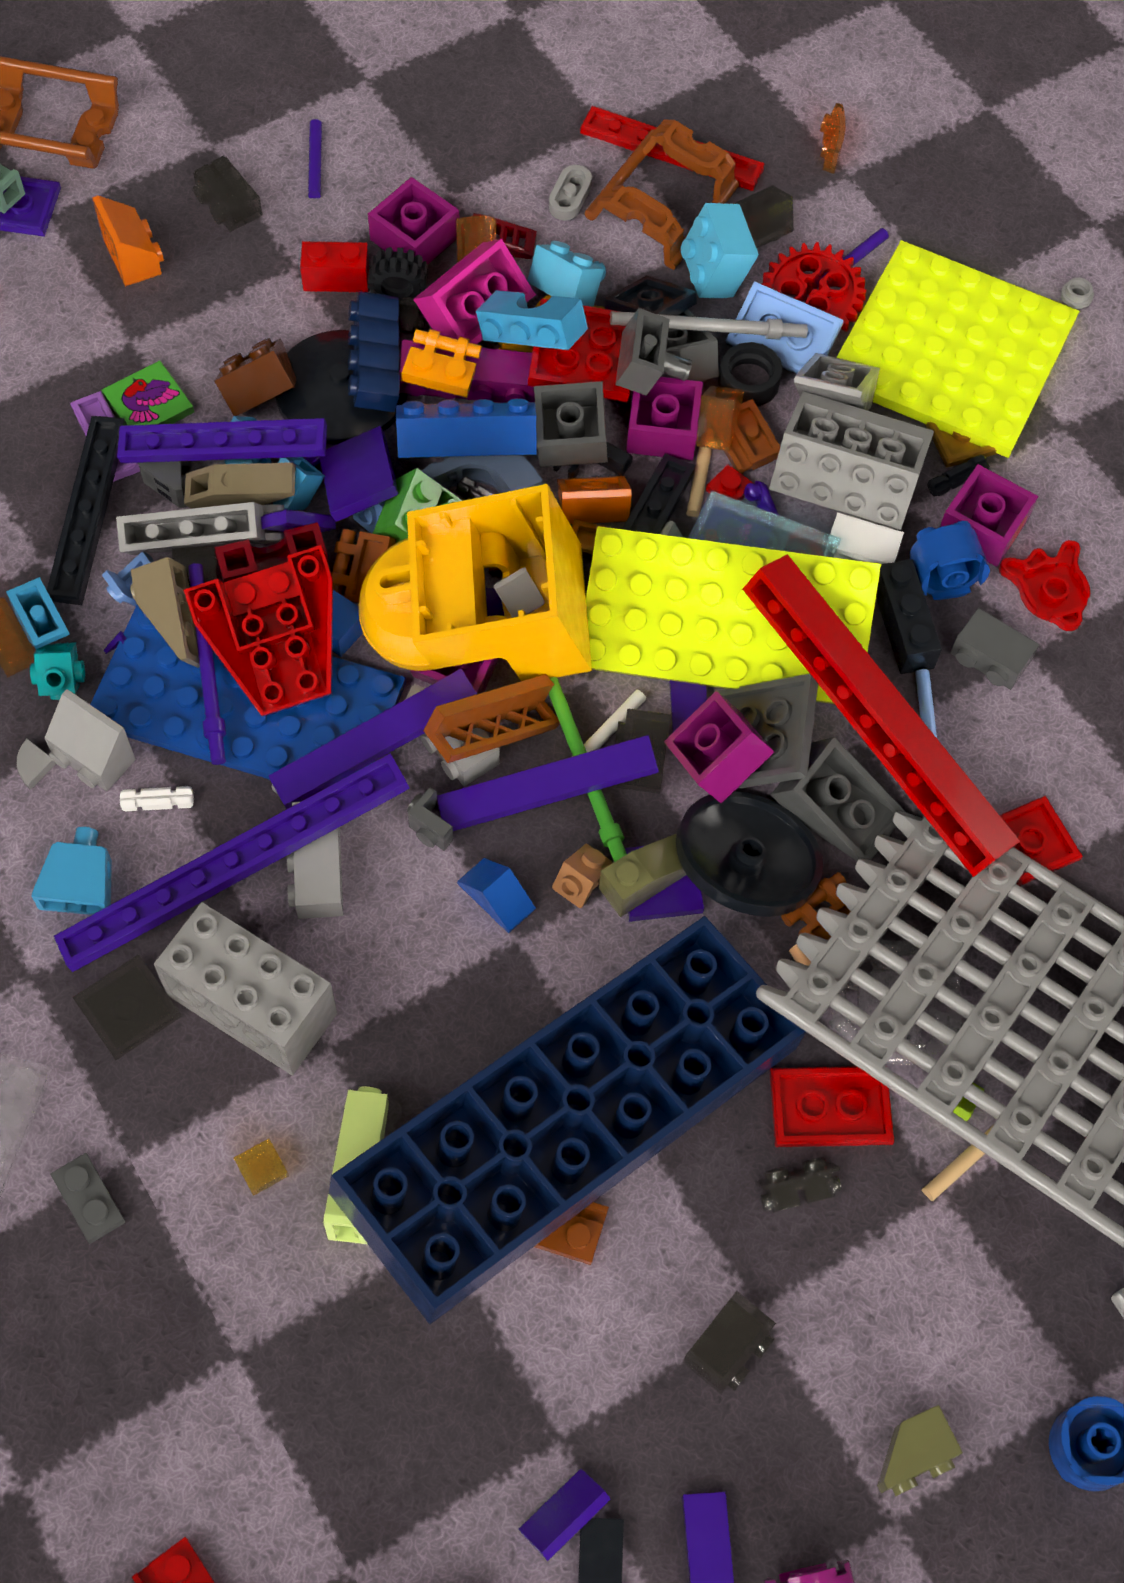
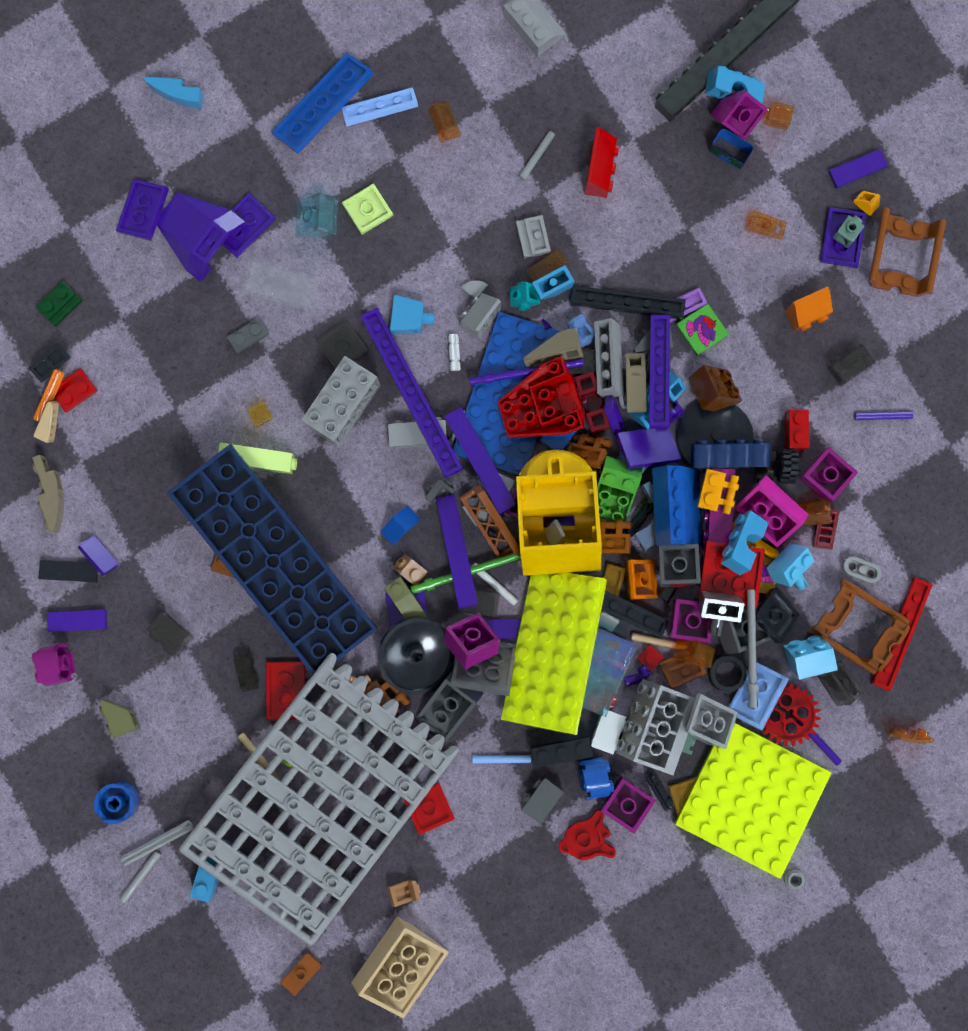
camera: 95 degrees right, 20 degrees up
(880, 715) = (486, 727): red brick -> none

